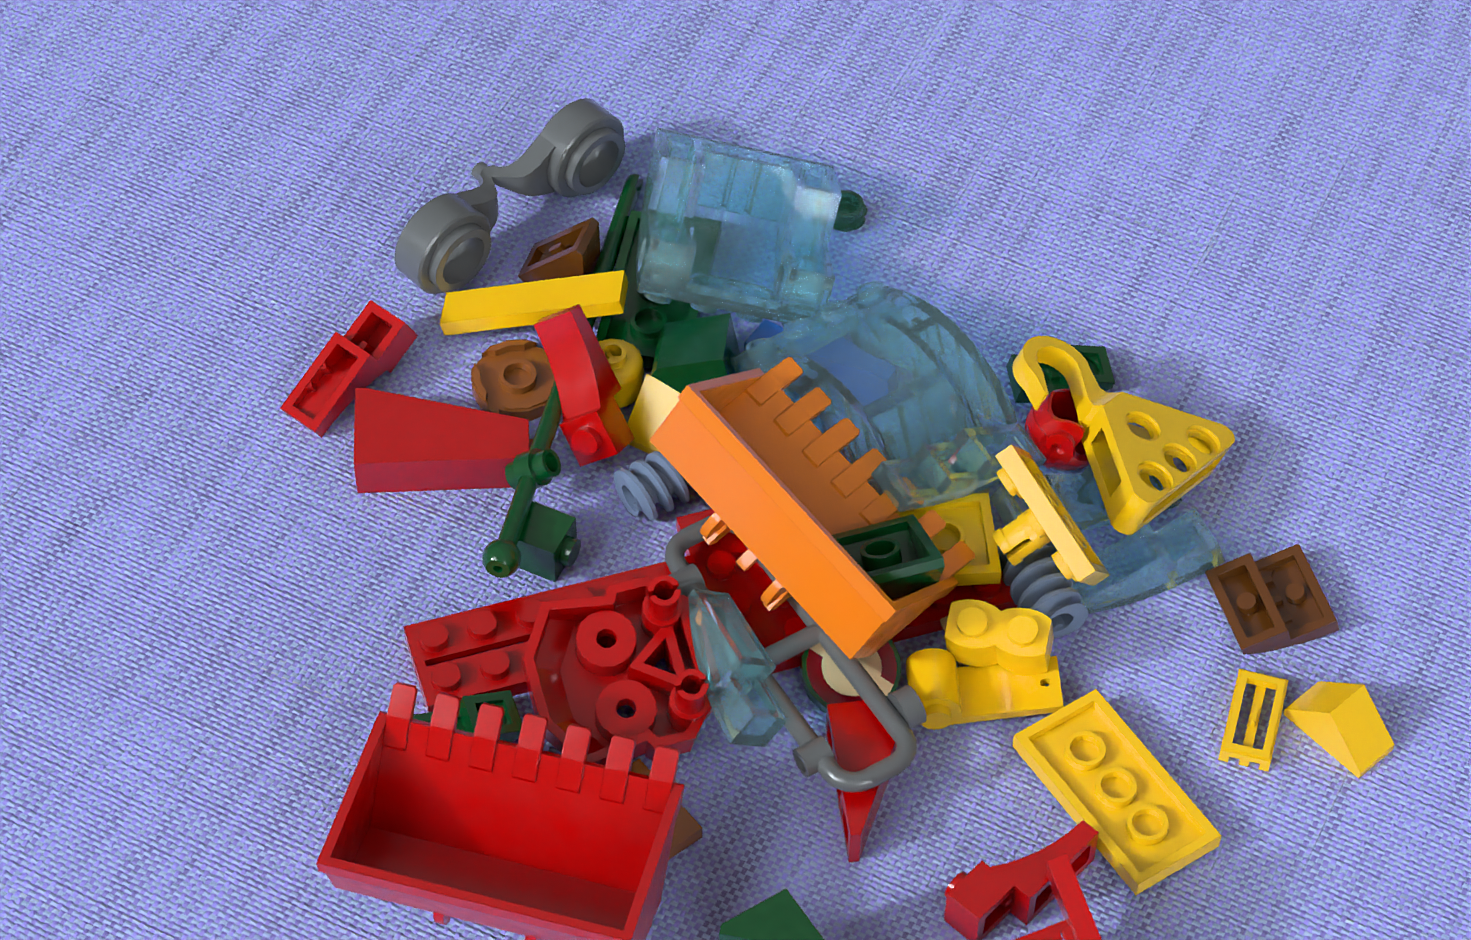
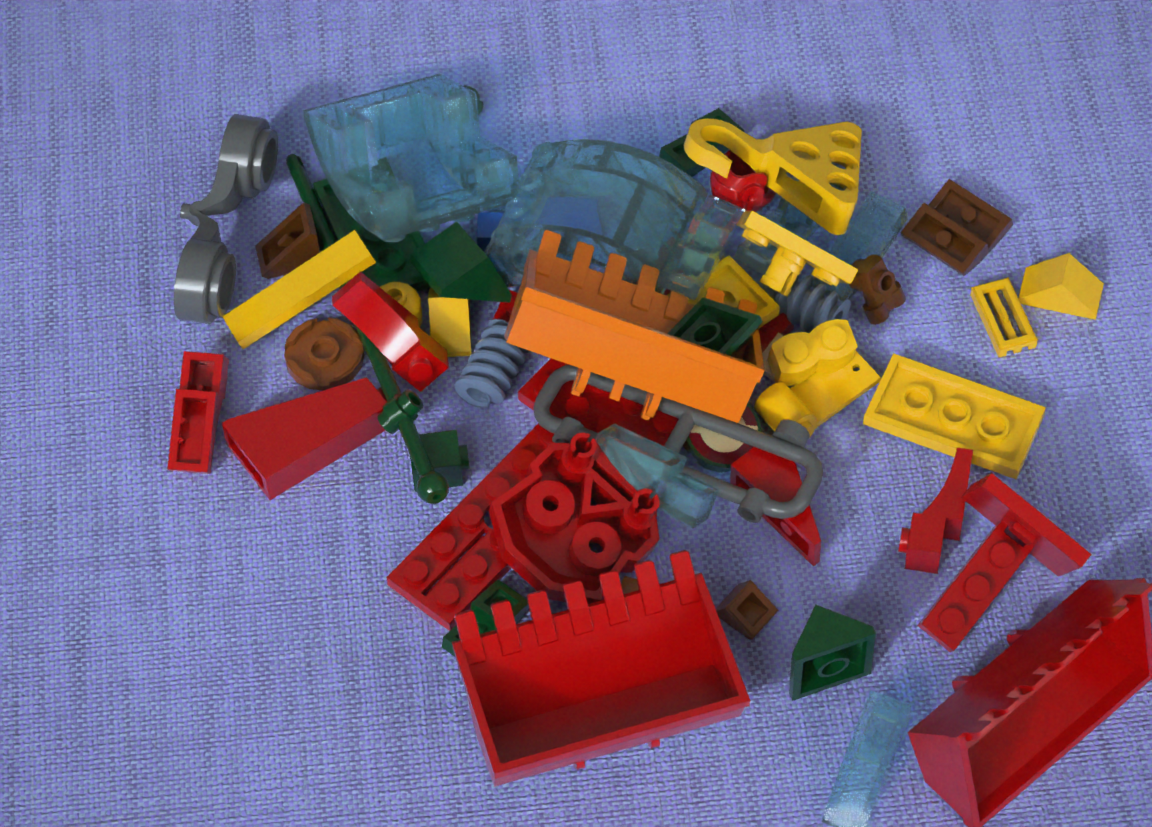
camera: 30 degrees left, 5 degrees up
(741, 866) = (746, 609): none -> dark orange slope
(1129, 612) = (878, 288): none -> reddish brown plate

